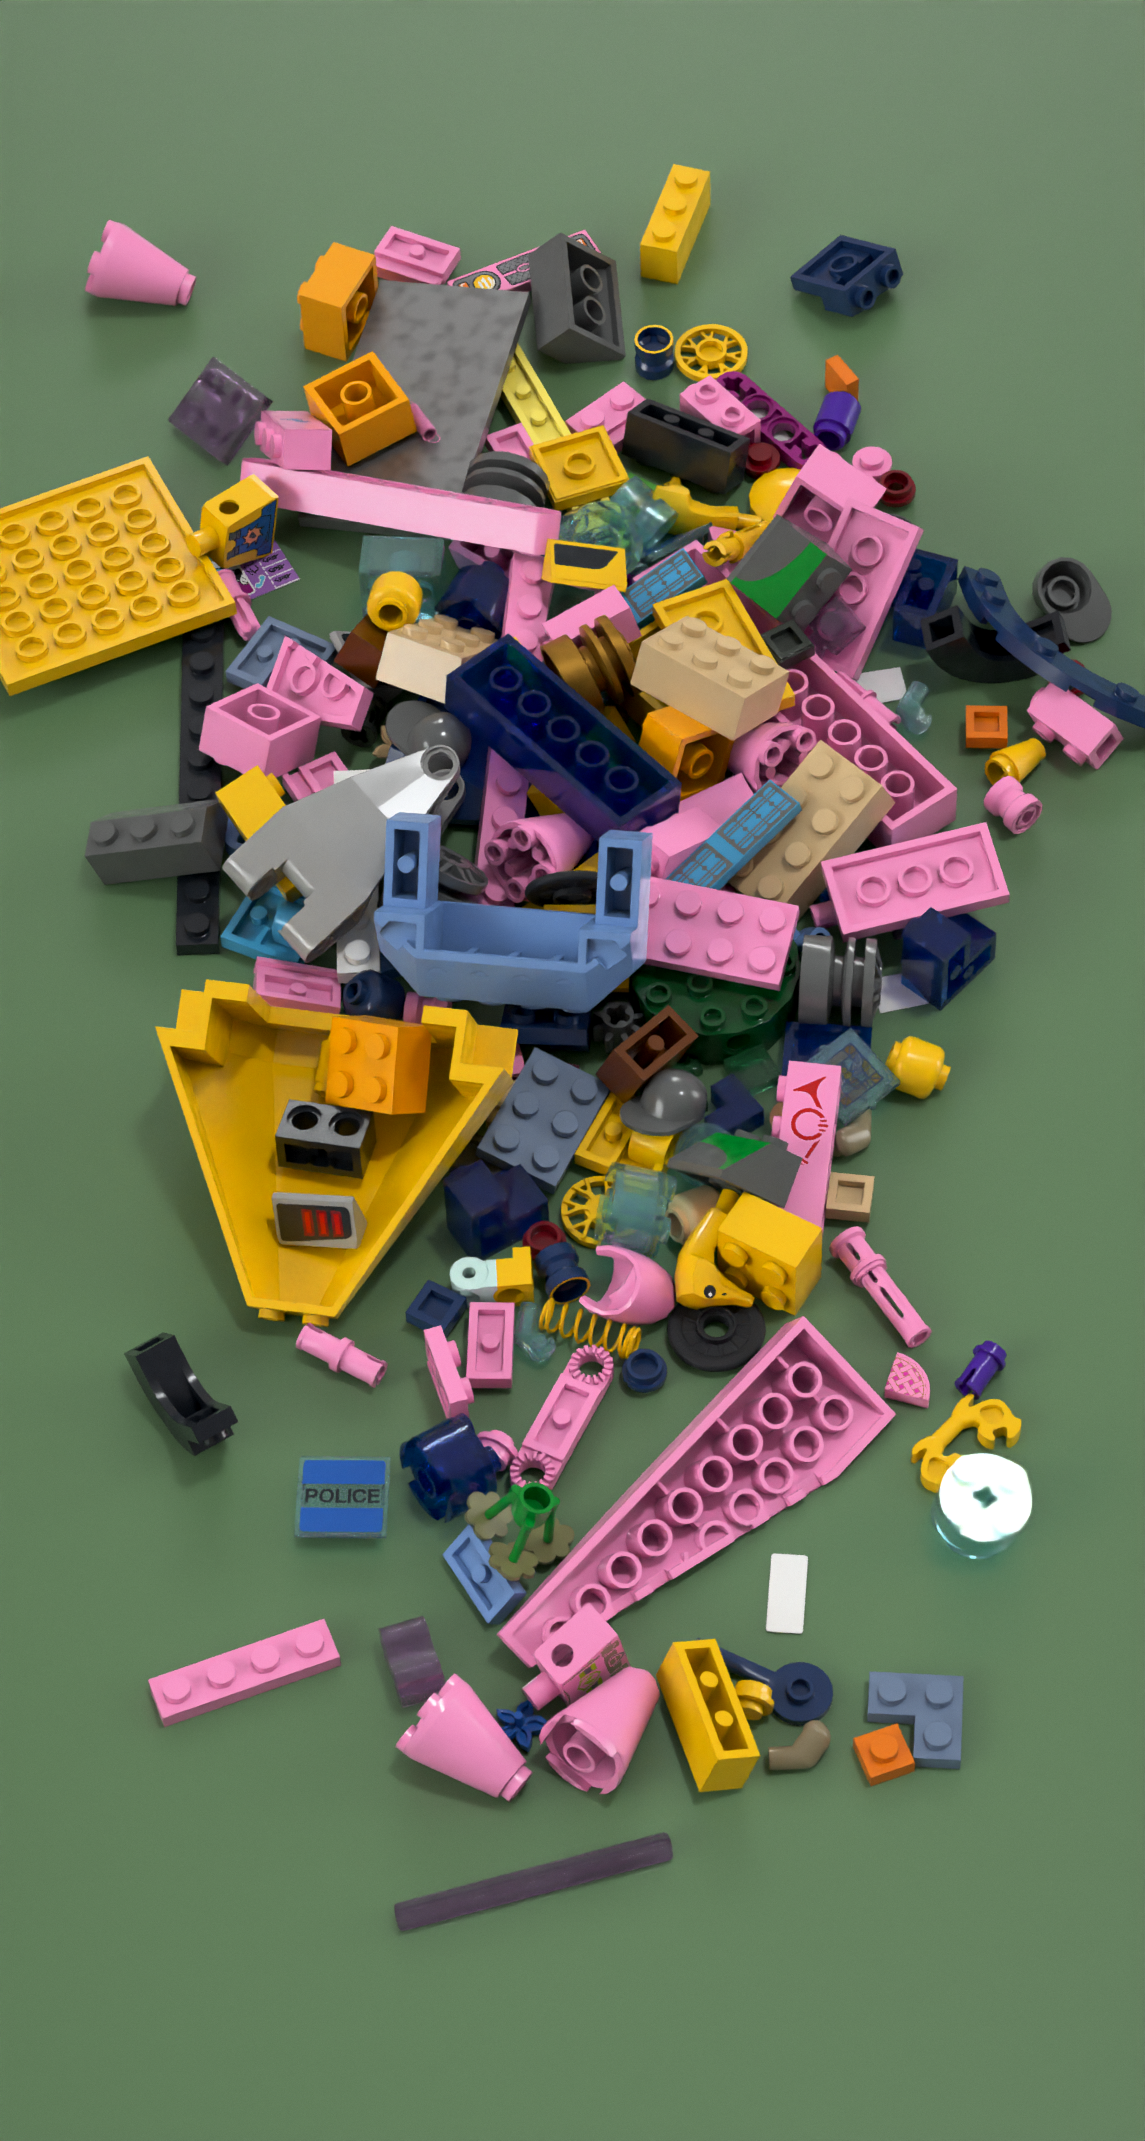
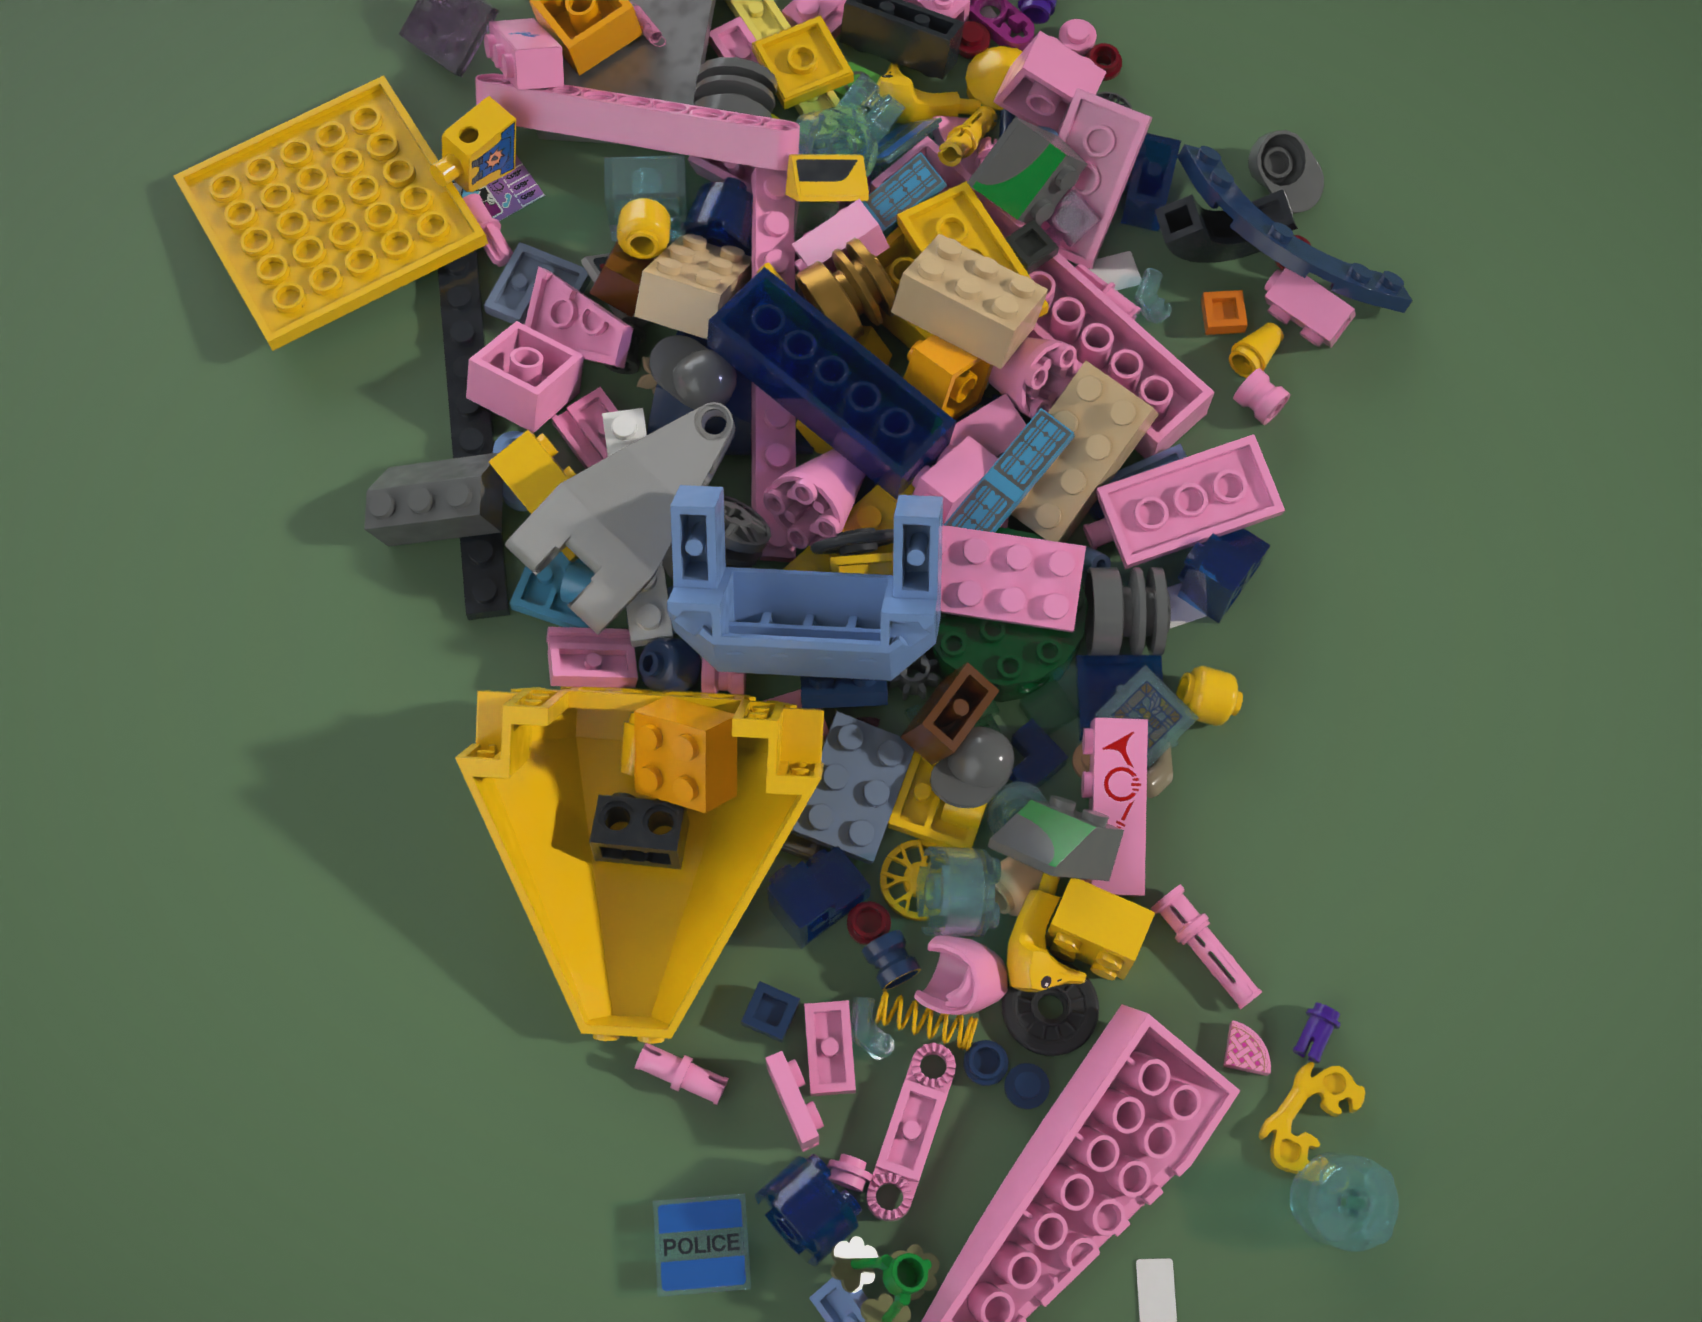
camera: 10 degrees left, 15 degrees up
(178, 1395) = (525, 1144): black arch -> none
(318, 1220) = (643, 928): slope -> none
(495, 1279) = (825, 975): leg -> none
(682, 1394) = (1026, 1086): none -> dark blue plate
(849, 1197) = (1165, 846): tan plate -> none

